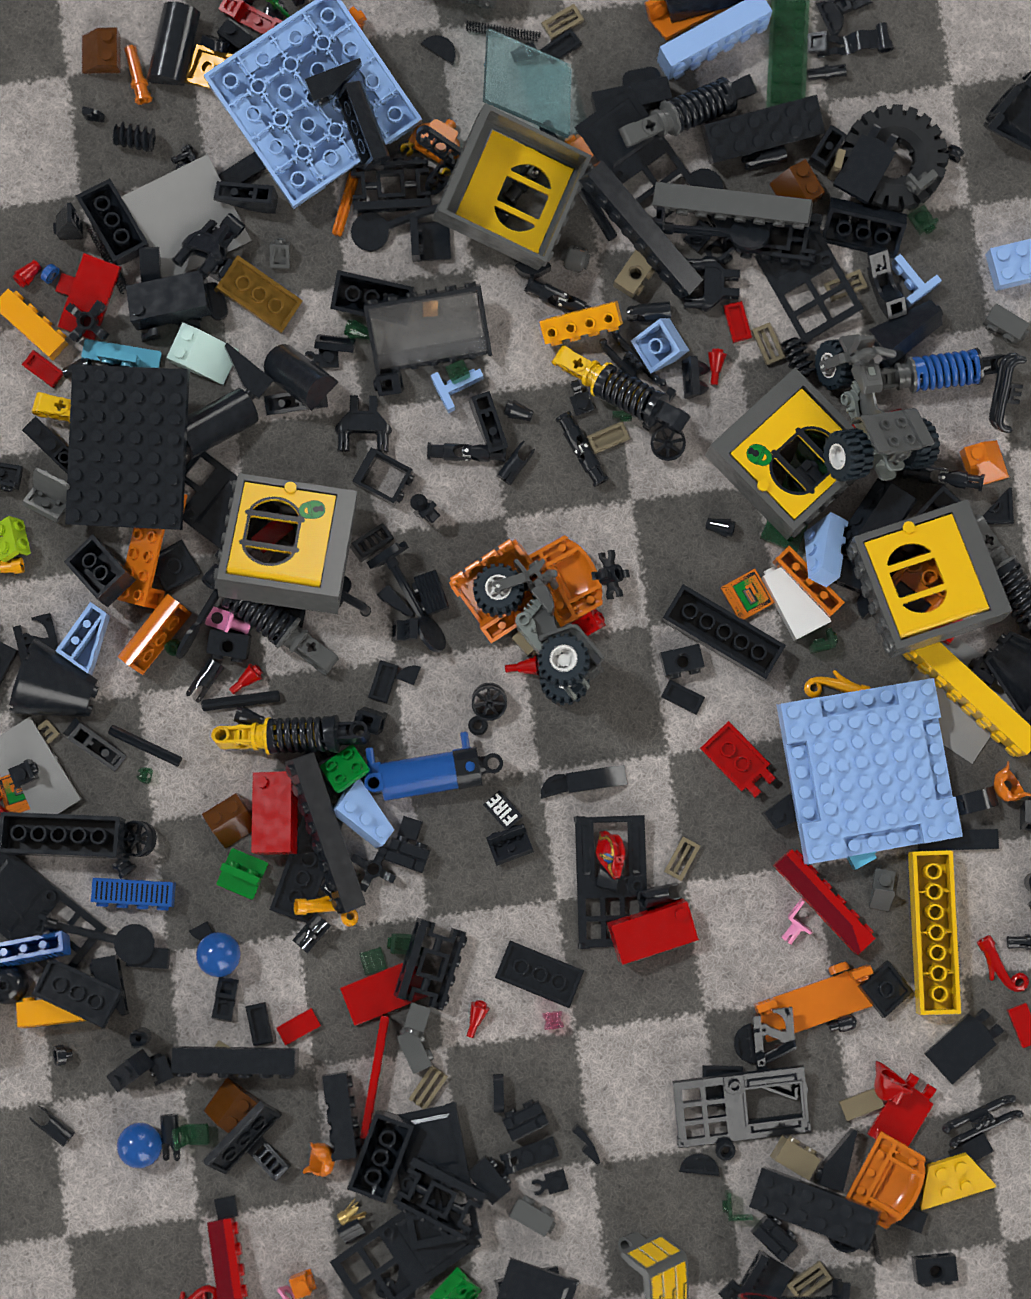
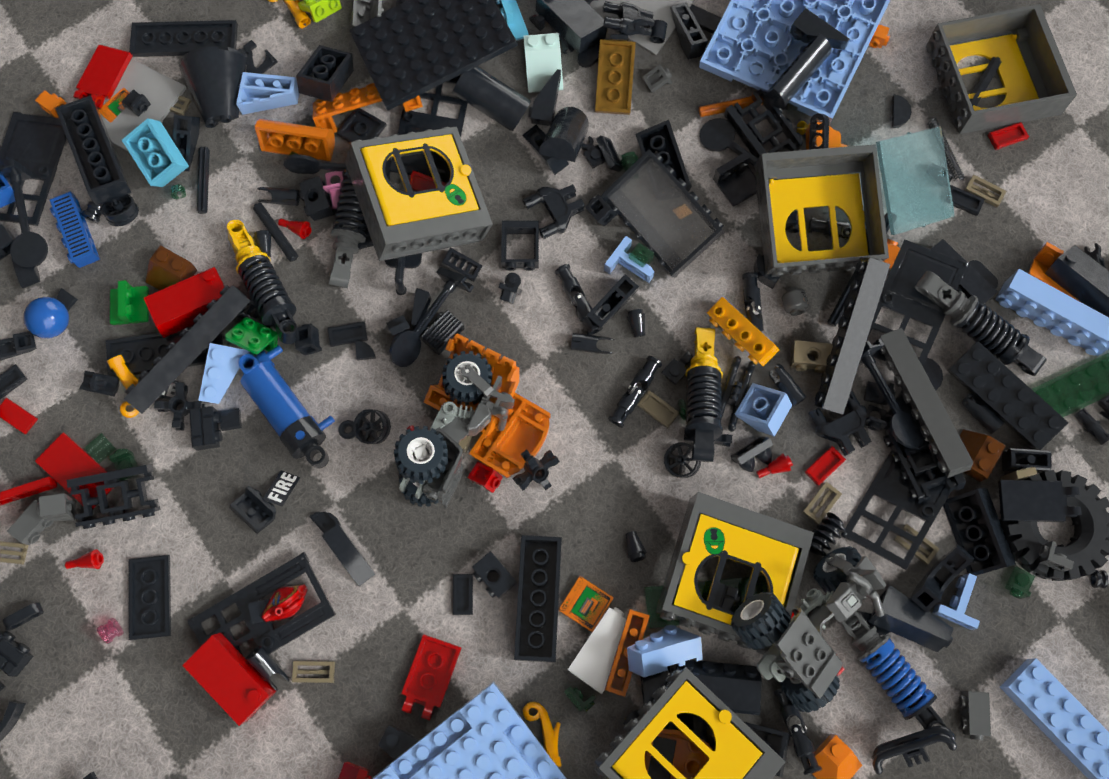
camera: 65 degrees right, 10 degrees down
(97, 776) = (155, 153): none -> medium azure brick

